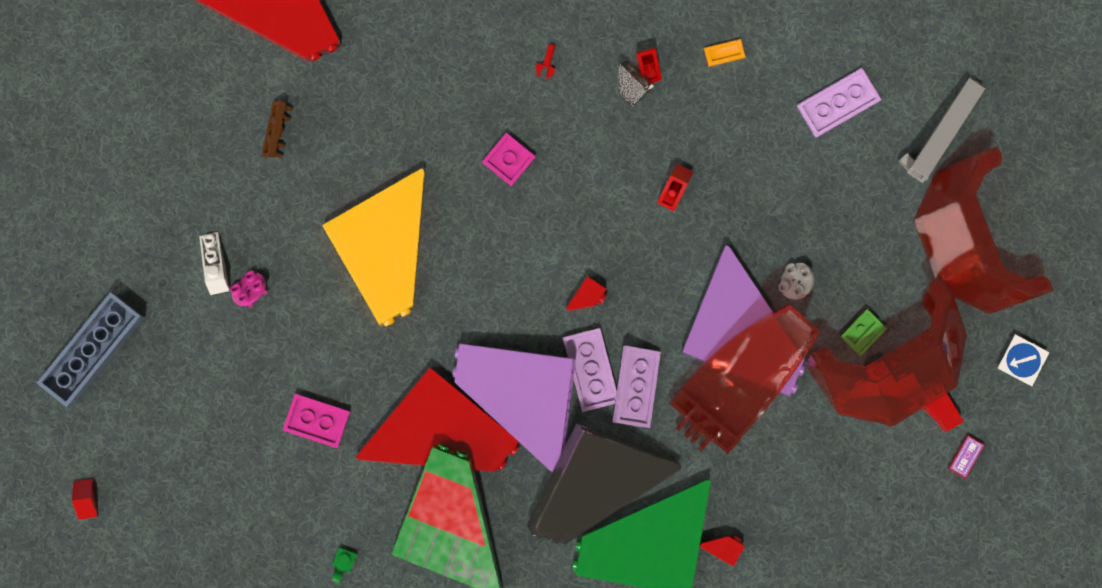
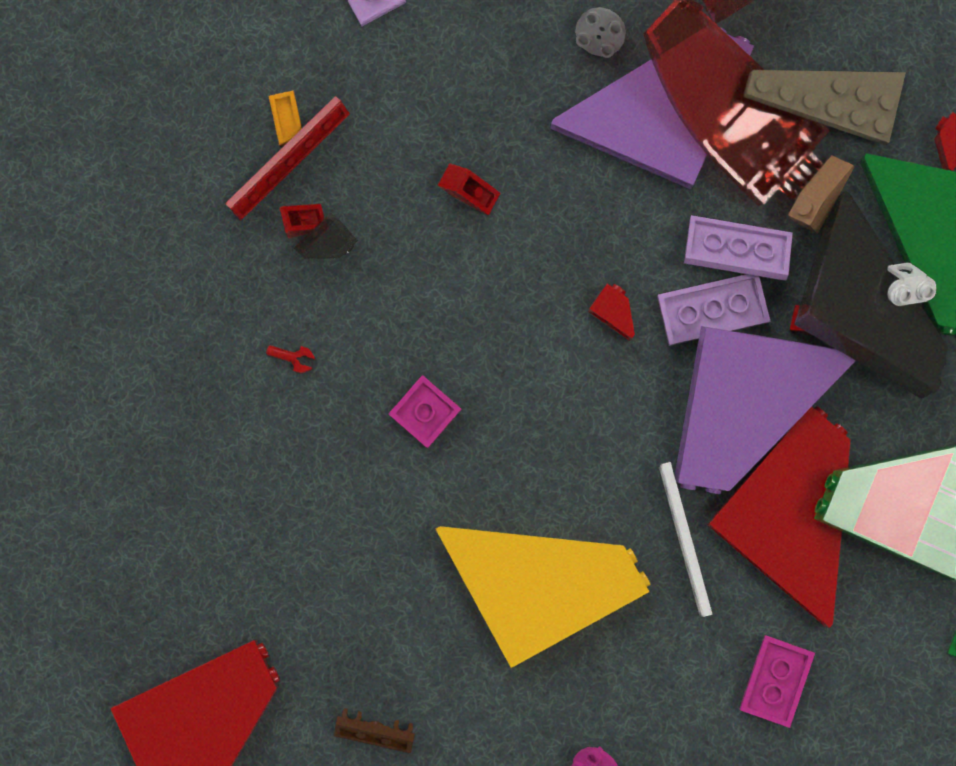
camera: 85 degrees left, 0 degrees up
(419, 351) = (685, 539): none -> white tile
(608, 513) = (910, 287): none -> white bracket
(679, 448) = (820, 194): none -> medium nougat slope
(694, 54) = (287, 158): none -> red tile
(750, 466) = (840, 99): none -> dark tan wing

